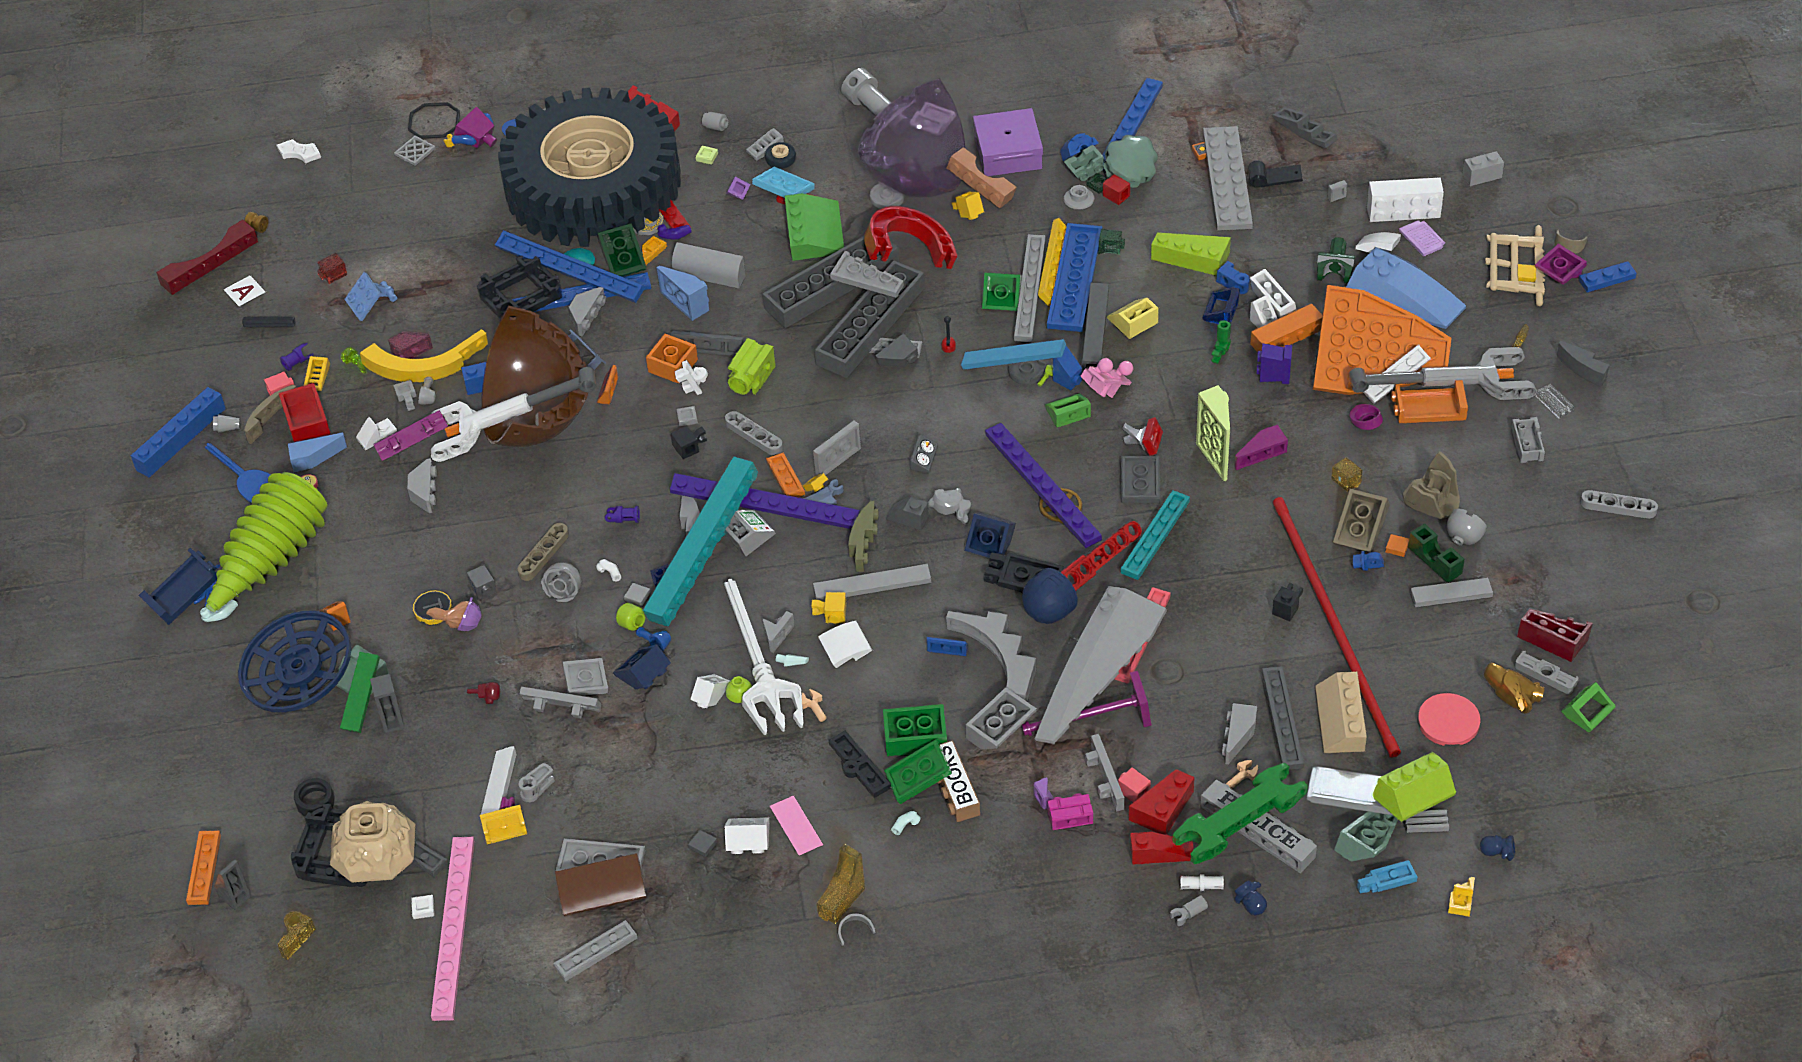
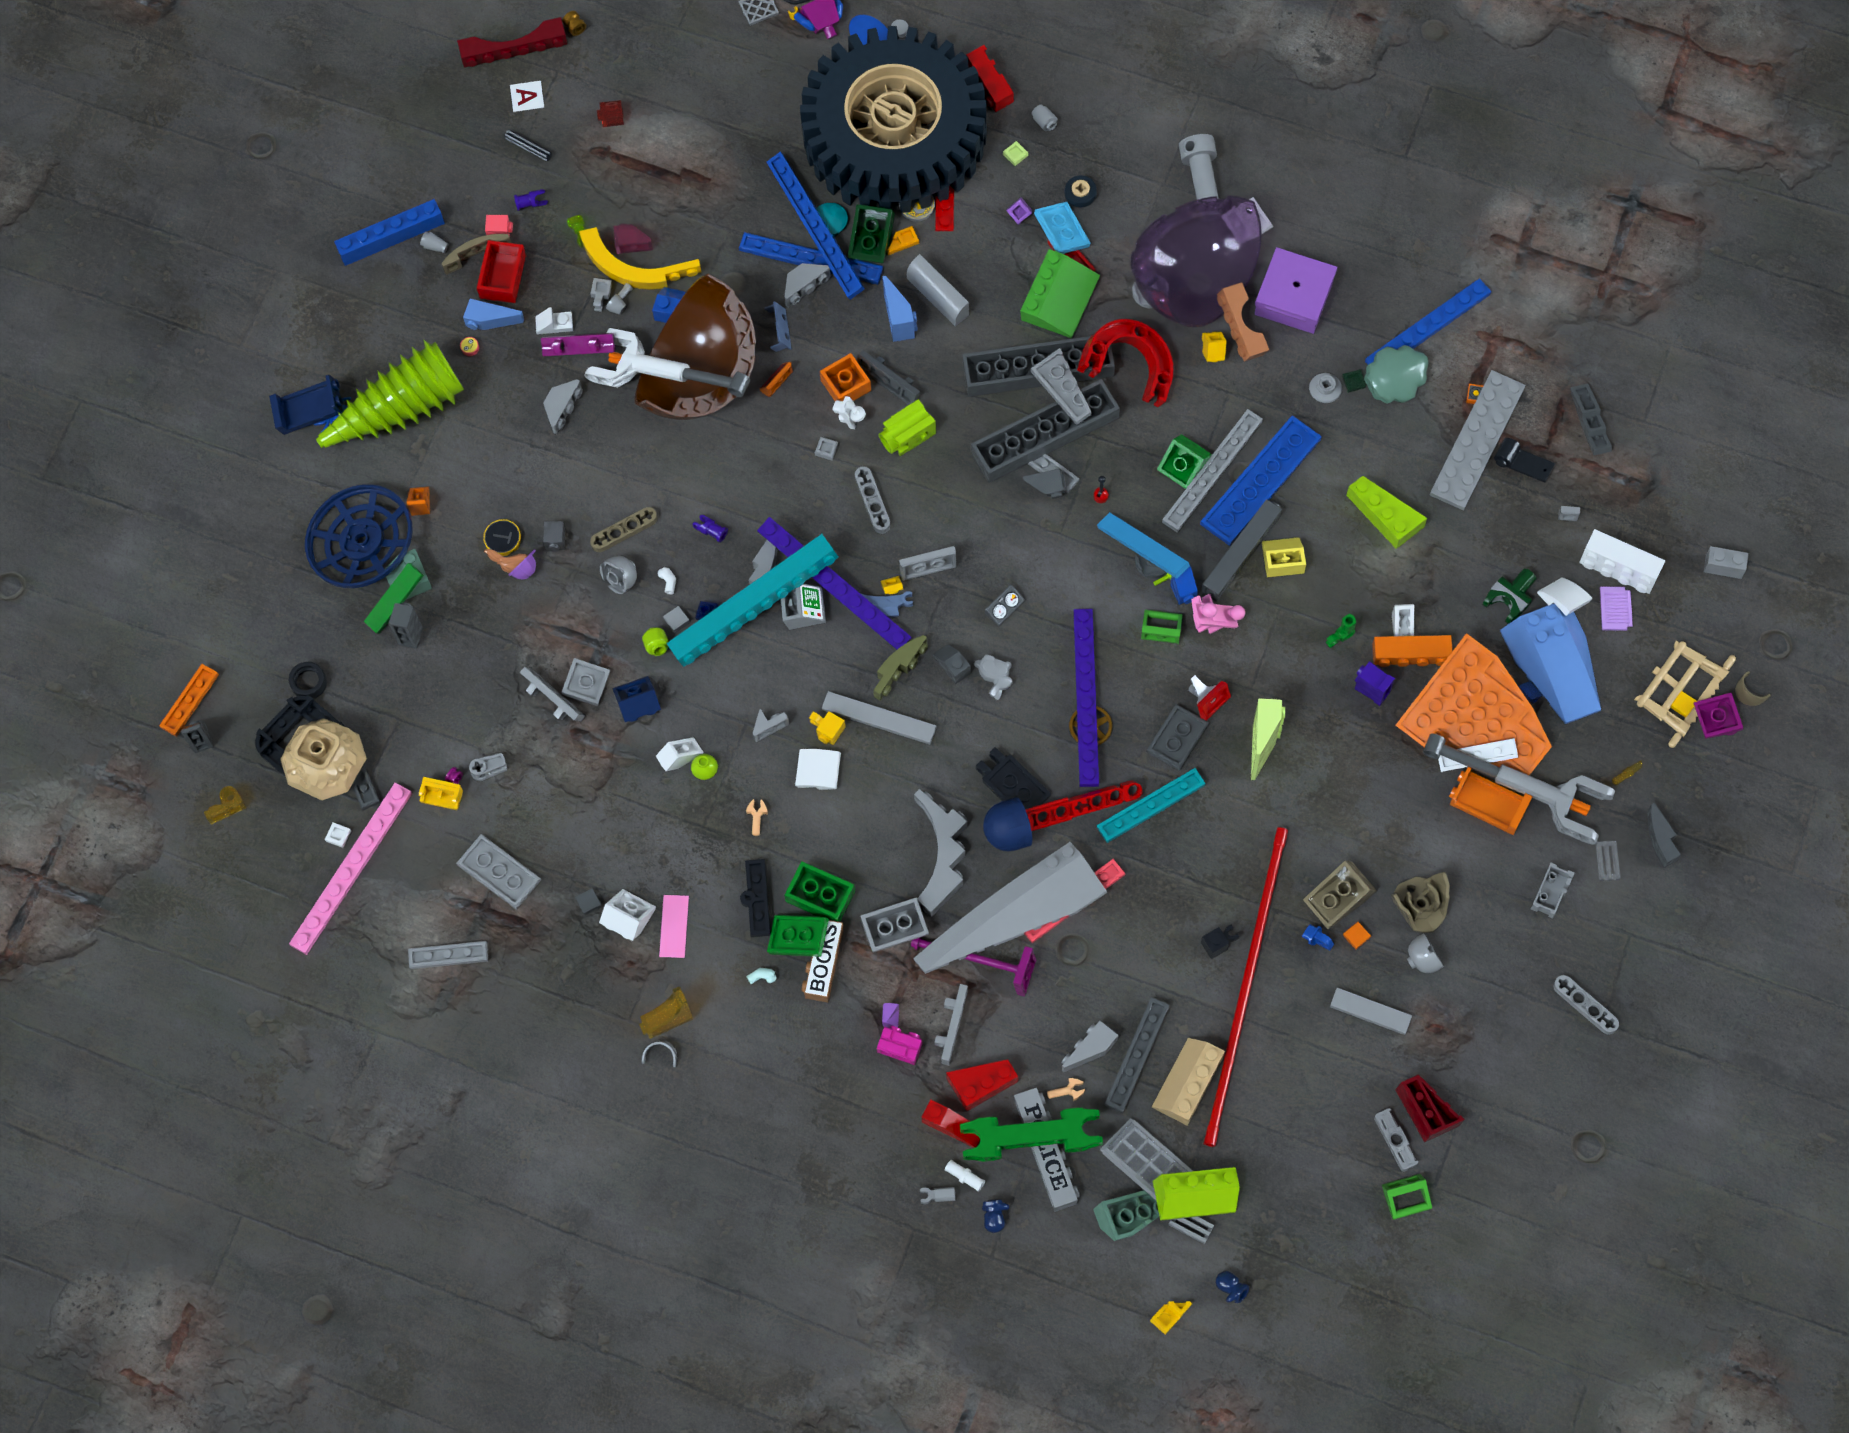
camera: 30 degrees right, 20 degrees up
(224, 612) = (329, 450): light aqua arm -> none
(248, 481) = (425, 321): blue piece -> none
(317, 362) = (532, 225): yellow slope -> none
(366, 293) = (621, 163): medium blue plate -> none
(488, 691) = (499, 651): dark red piece -> none
(499, 779) = (460, 748): white slope -> none
(549, 286) = (752, 207): black plate -> none
(600, 884) = (483, 897): reddish brown slope -> none
(661, 638) = (666, 678): blue bar -> none
(674, 233) = (931, 232): dark purple arm -> none
(687, 442) = (807, 478): black brick -> none
(766, 140) = (1078, 164): light grey slope -> none
(766, 687) = (727, 779): white piece -> none
(785, 475) = (872, 562): orange tile -> none
(790, 660) = (764, 759): light aqua bar -> none
(947, 646) = (902, 819): blue slope -> none
(989, 535) = (1006, 726): dark blue slope -> none
(1052, 261) = (1250, 451): yellow plate -> none
(1077, 145) = (1356, 326): blue cylinder -> none
(1086, 164) = (1352, 354): sand green cylinder -> none
(1111, 241) = (1318, 458): clear green window -> none
(1116, 189) = (1363, 399): red brick -> none
(1133, 784) = (967, 1050): coral brick -> none
(1230, 295) = (1382, 592): clear blue tile -> none
(1231, 278) = (1403, 563): blue leg -> none
(1263, 446) = (1308, 764): magenta slope -> none
(1265, 284) = (1424, 605): white brick -> none
(1347, 474) = (1361, 837): clear yellow brick -> none
(1366, 416) = (1421, 784): magenta hat -> none
(1387, 877) = (1121, 1261): dark azure hinge -> none
(1446, 563) = (1379, 966): dark green arch -> none
(1449, 719) = (1279, 1137): coral tile -> none
(1513, 687) = (1353, 1141): pearl gold animal -> none
(1607, 276) = (1758, 750): blue plate -> none

